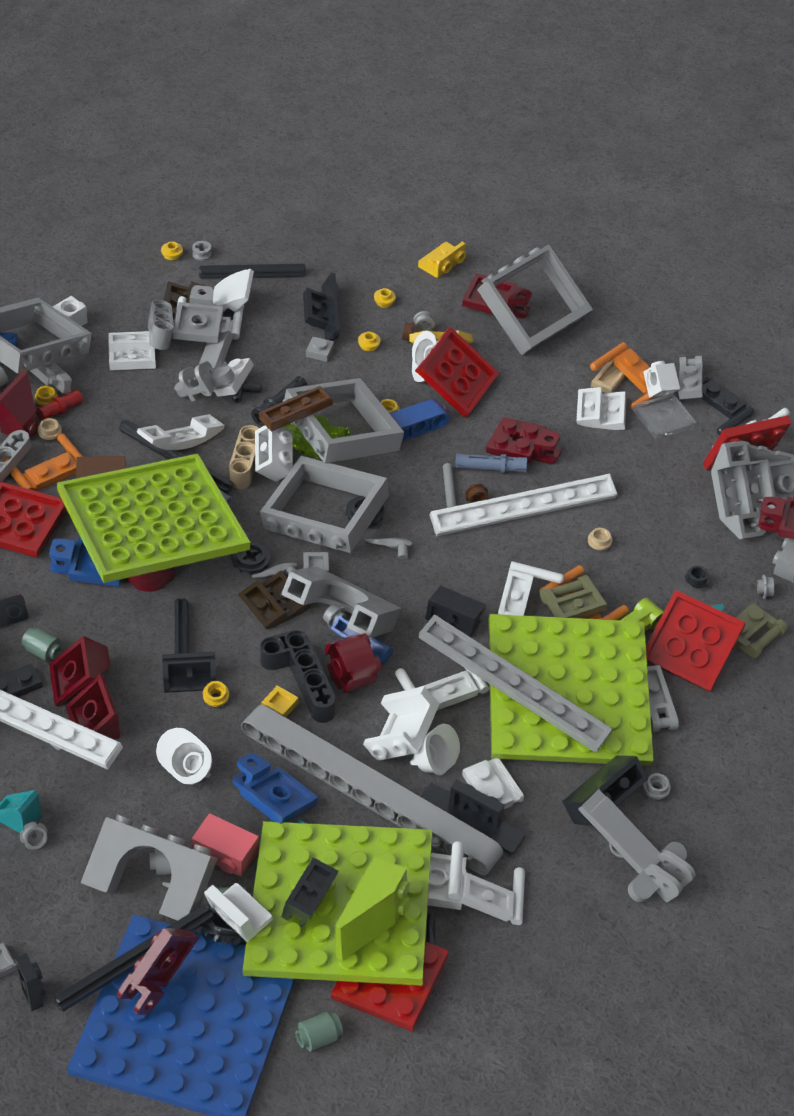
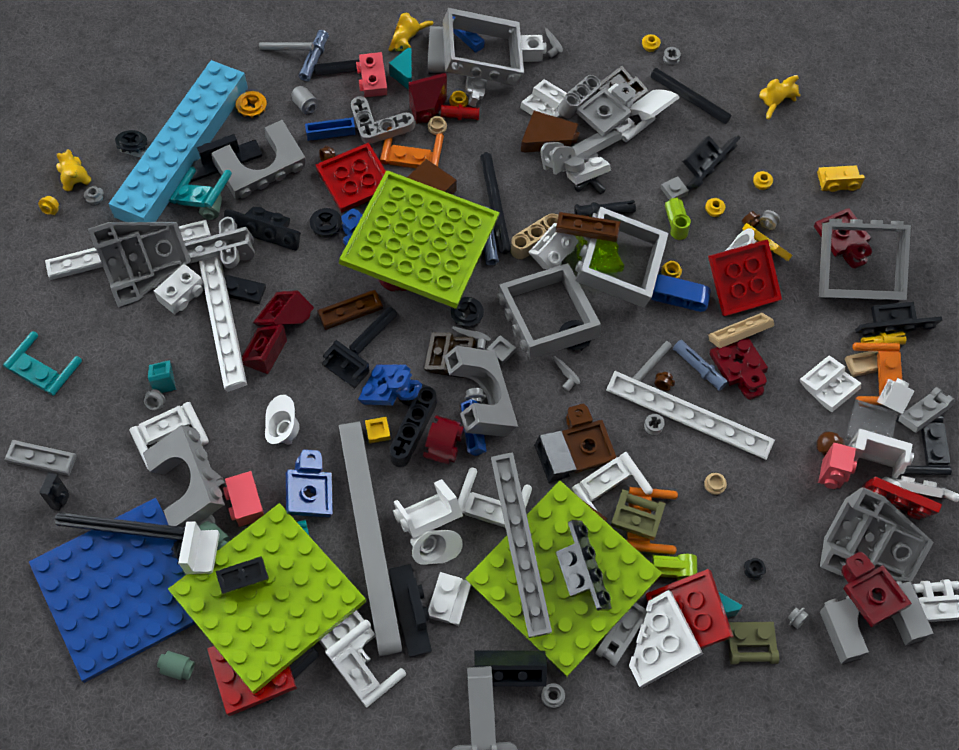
camera: 45 degrees right, 15 degrees up
(23, 570) = (325, 215): none -> black gear
(42, 644) = (282, 275): sand green brick -> none
(69, 853) = (163, 424): none -> white plate
(89, 301) = (557, 48): none -> light grey bar
(138, 629) = (350, 309): none -> reddish brown tile
(157, 968) = (117, 544): plate -> none
(160, 370) = (546, 129): none -> reddish brown slope
(200, 430) = (508, 191): white slope -> none
(213, 688) = (343, 387): yellow plate -> none
(261, 648) = (387, 384): none -> blue plate
(325, 225) = (777, 92): none -> yellow animal
(351, 367) = (678, 219): none -> lime piece
(373, 906) = (257, 620): lime slope -> none
(458, 574) = (583, 430): none -> reddish brown plate
(493, 415) = (741, 330): none -> tan tile
(504, 538) = (649, 429): none -> light grey bush
(581, 665) = (581, 568): none -> bracket
(597, 328) = (896, 316): none -> black bracket
(604, 348) = (886, 338): none -> yellow pin
(652, 448) = (826, 440): none -> reddish brown piece
(676, 456) = (837, 466): none -> coral brick
(694, 424) = (883, 450): none -> white panel
(696, 674) = (663, 641): none -> white plate

